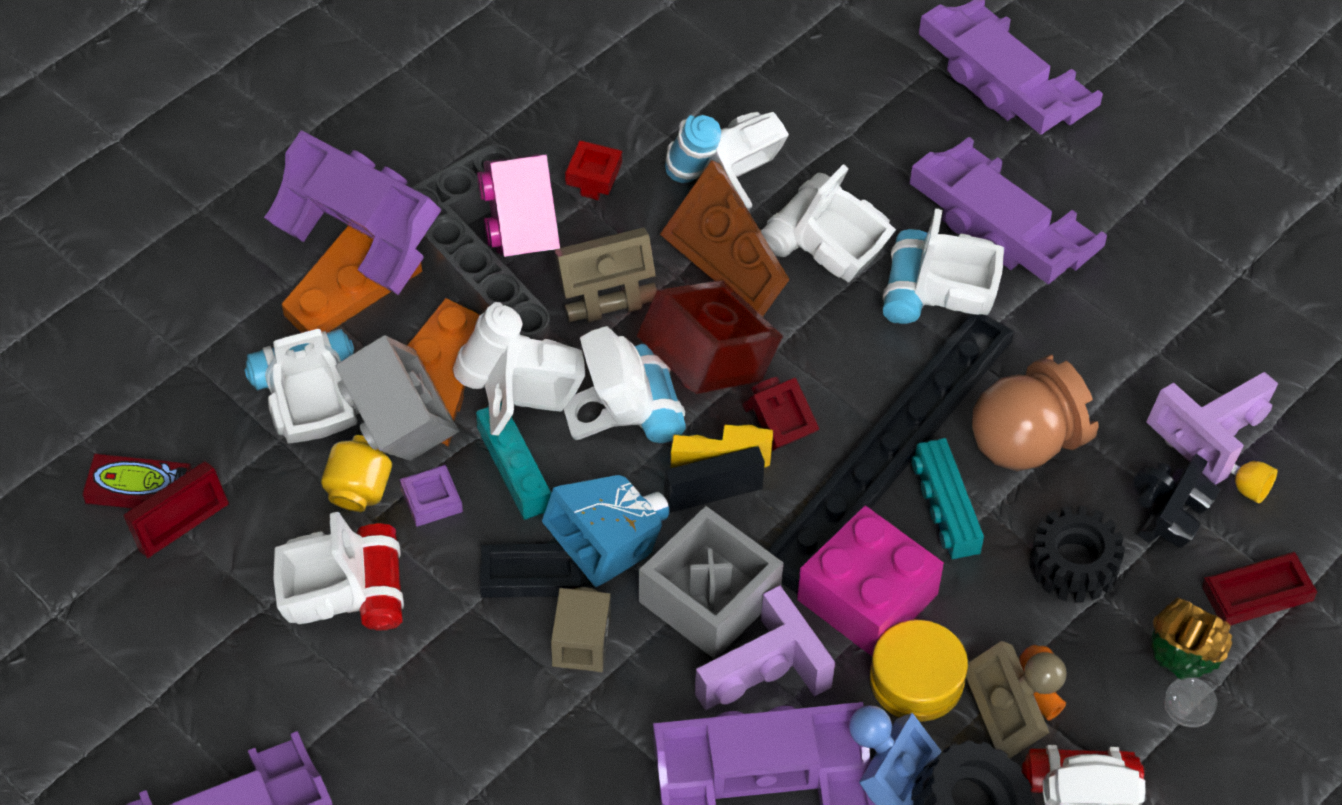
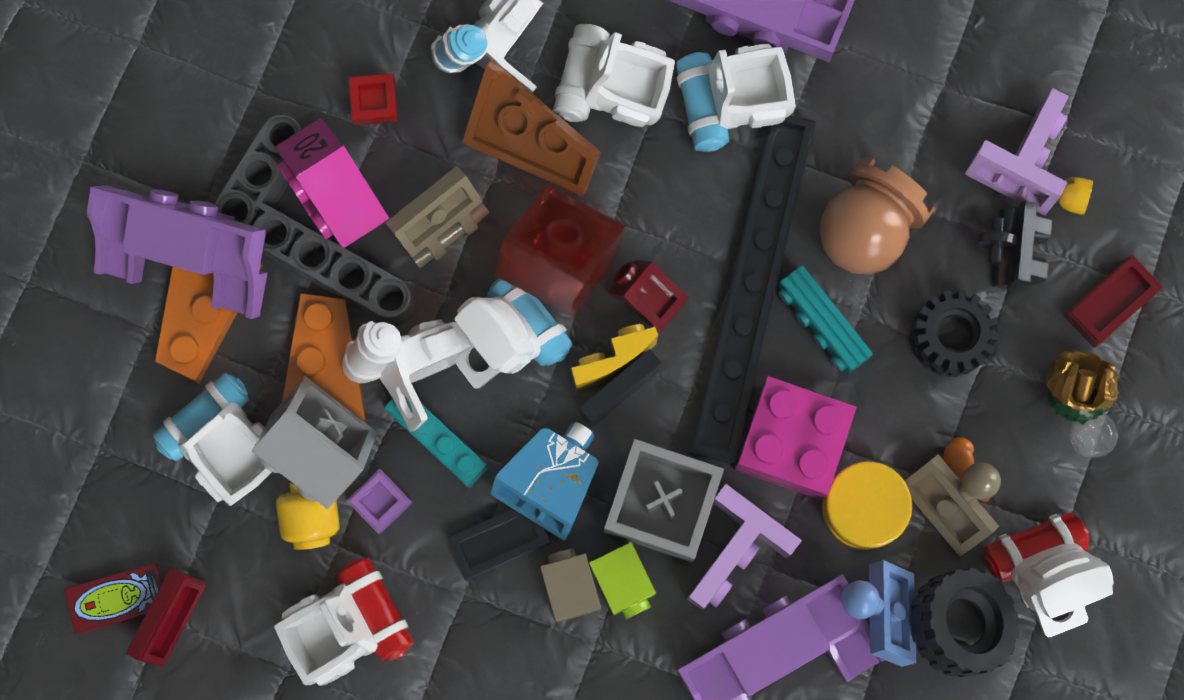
camera: 20 degrees left, 25 degrees up
(636, 641) = (623, 581): none -> lime brick

